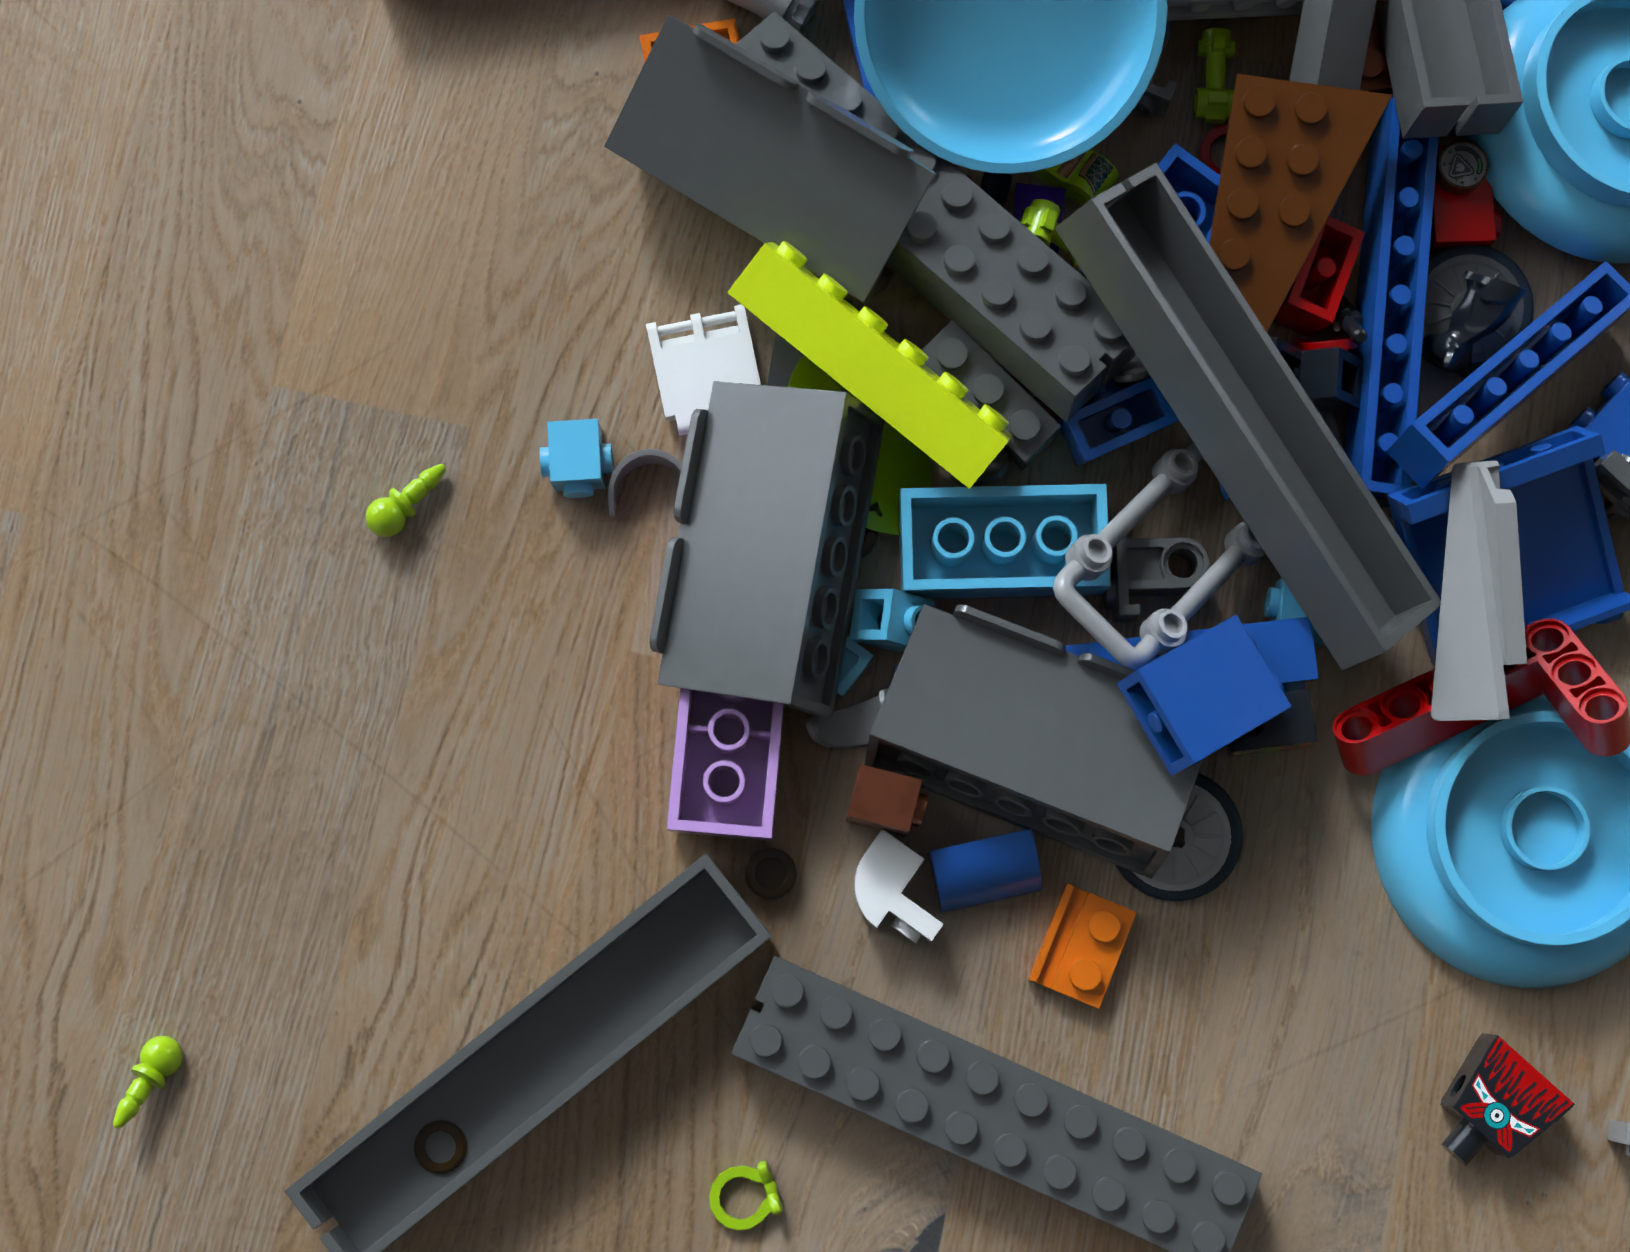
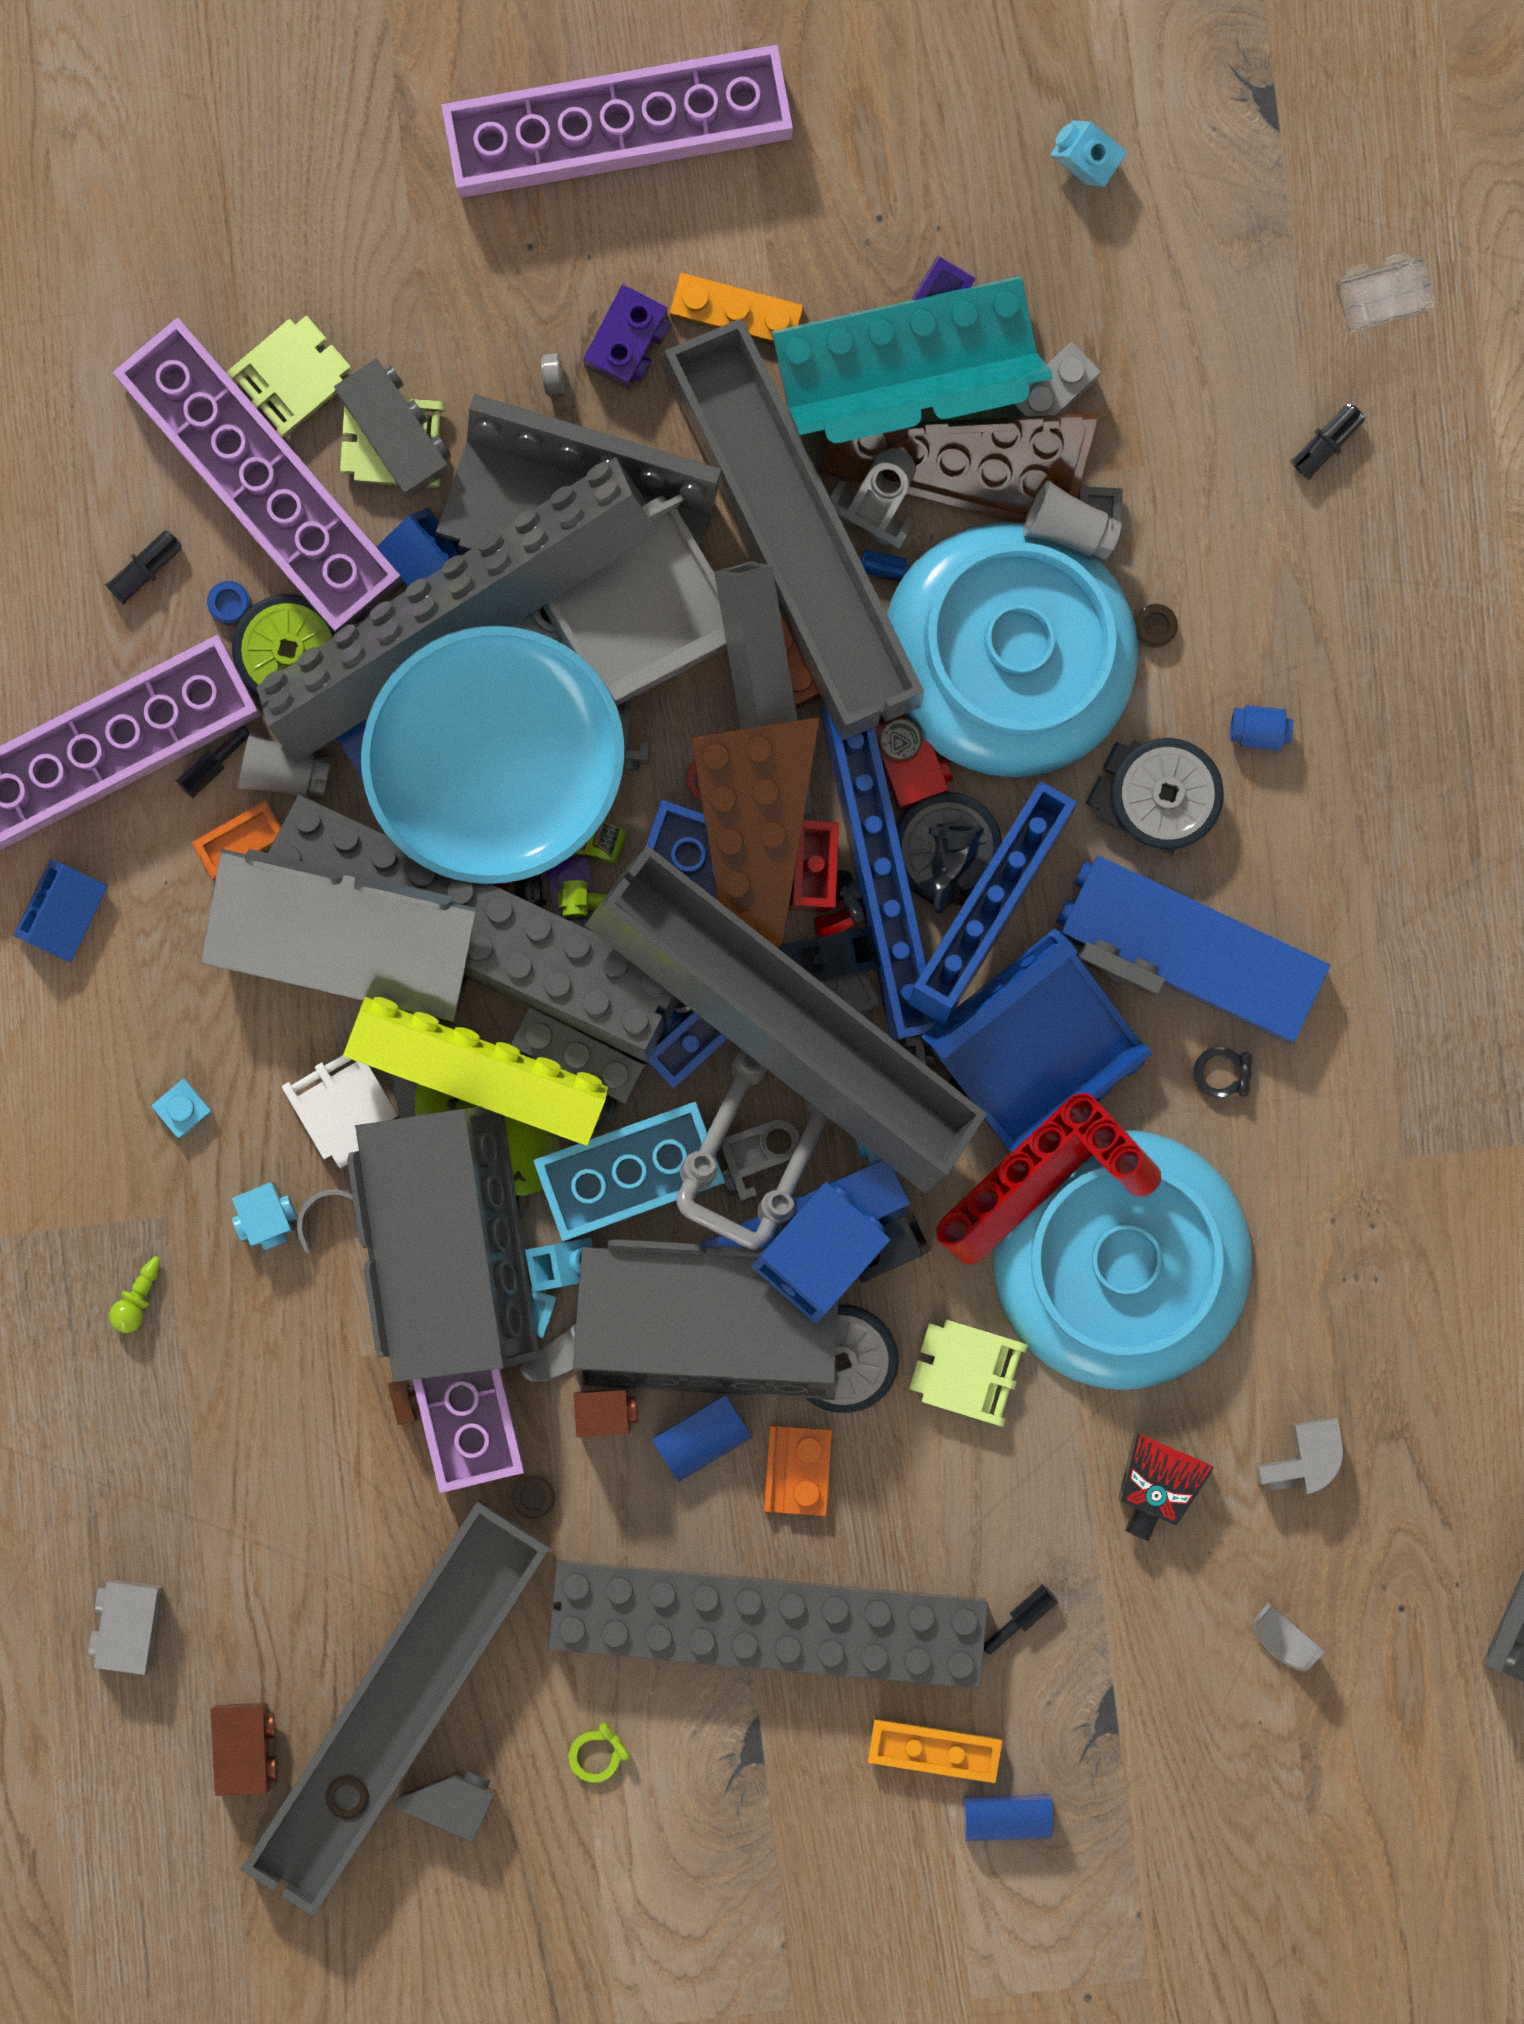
camera: 25 degrees left, 5 degrees up
(158, 1059) = (100, 1805): lime bar -> none
(259, 864) = (126, 1626): none -> light grey brick
(340, 1050) = (242, 1749): none -> copper brick
(472, 60) = (60, 910): none -> blue brick
(528, 314) = (181, 1108): none -> medium azure plate
(556, 1196) = (451, 1803): none -> dark grey slope
(661, 714) = (404, 1401): none -> reddish brown plate
(879, 885) = (621, 1477): white brick -> none
(1214, 101) = (680, 741): lime bar -> none
(1293, 1203) = (1023, 1617): none -> black axle
(1312, 896) = (966, 1370): none -> yellowish green plate
(1480, 598) = (1010, 1104): light grey wedge -> none

